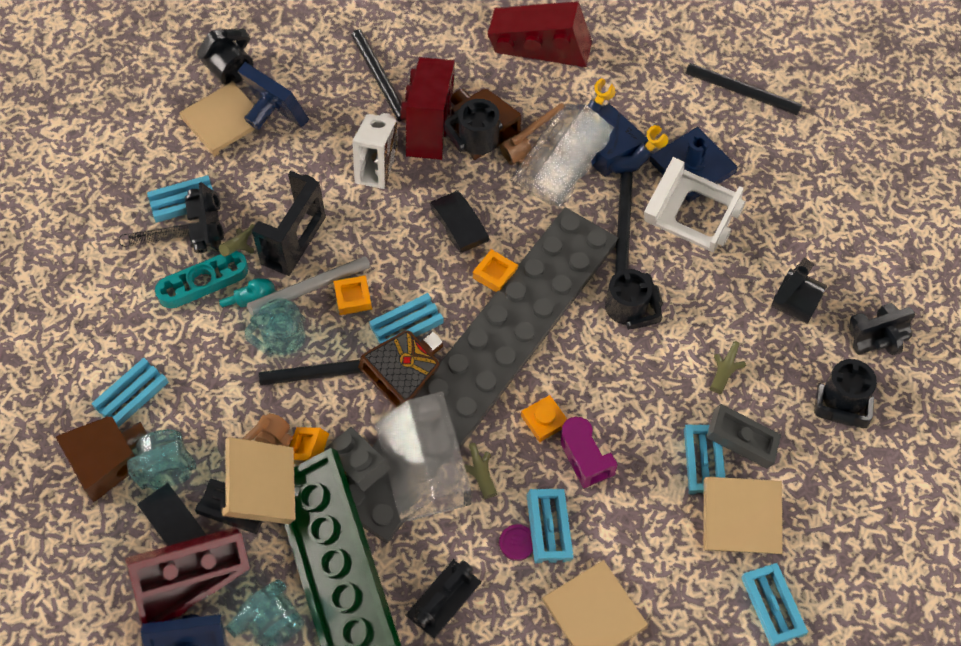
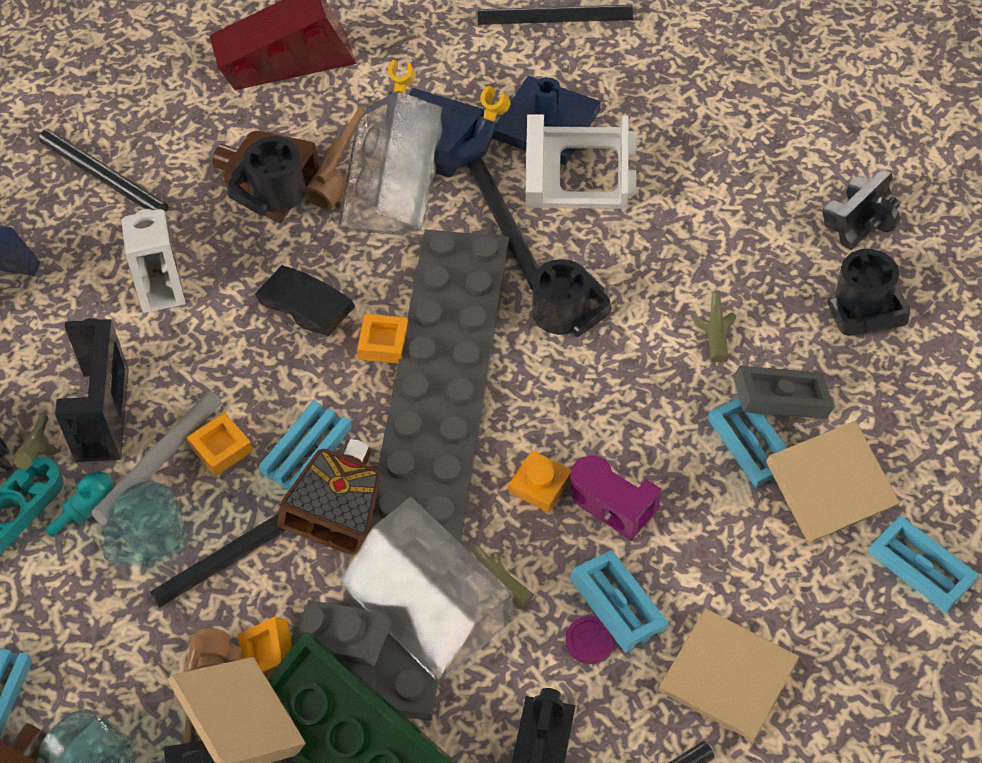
camera: 25 degrees left, 5 degrees down
(427, 107) = (191, 183): dark red wedge -> none
(799, 293) = (752, 208): black piece -> none

